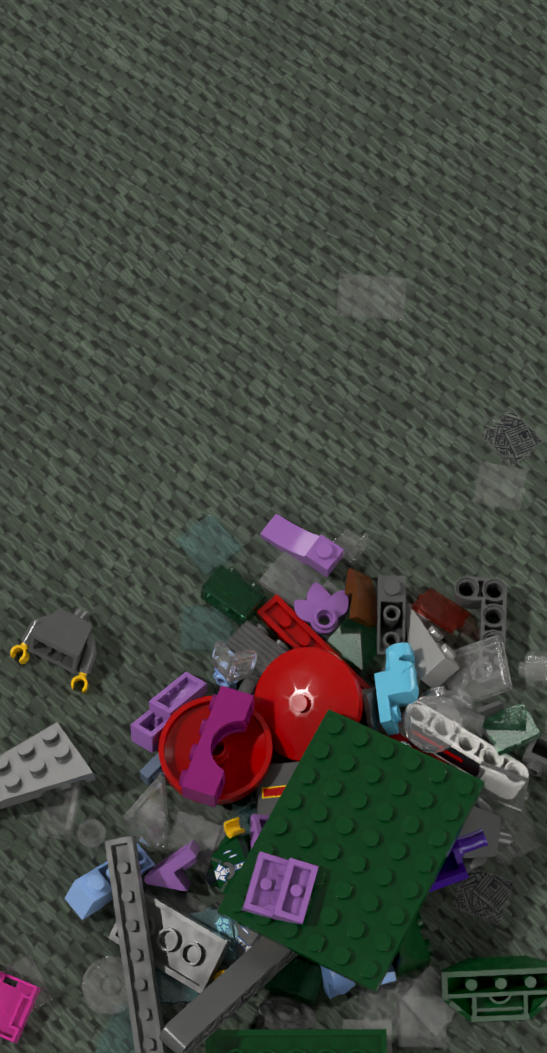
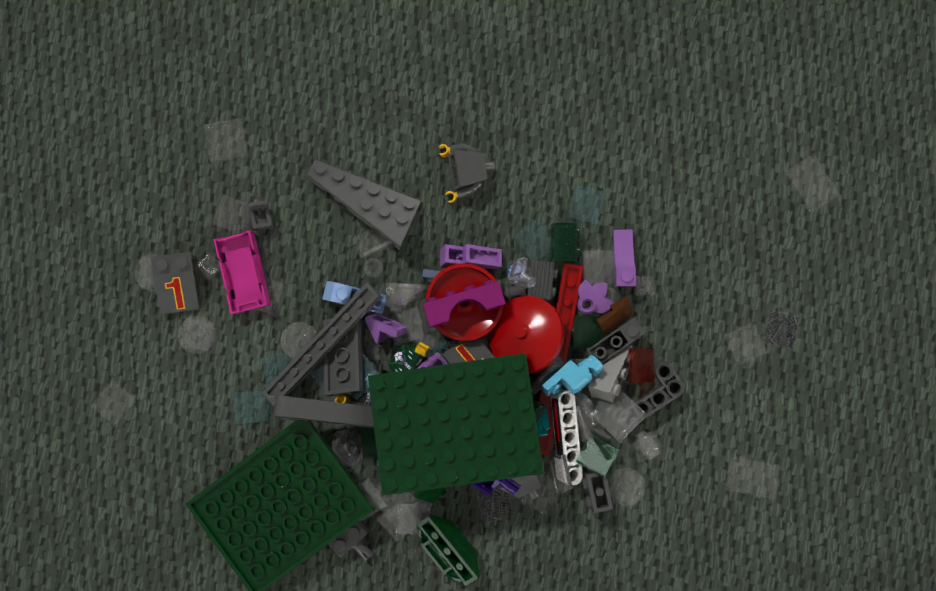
camera: 55 degrees right, 20 degrees up
(280, 888) = (401, 403): medium lavender slope -> none
(432, 724) = (565, 413): clear tile -> none

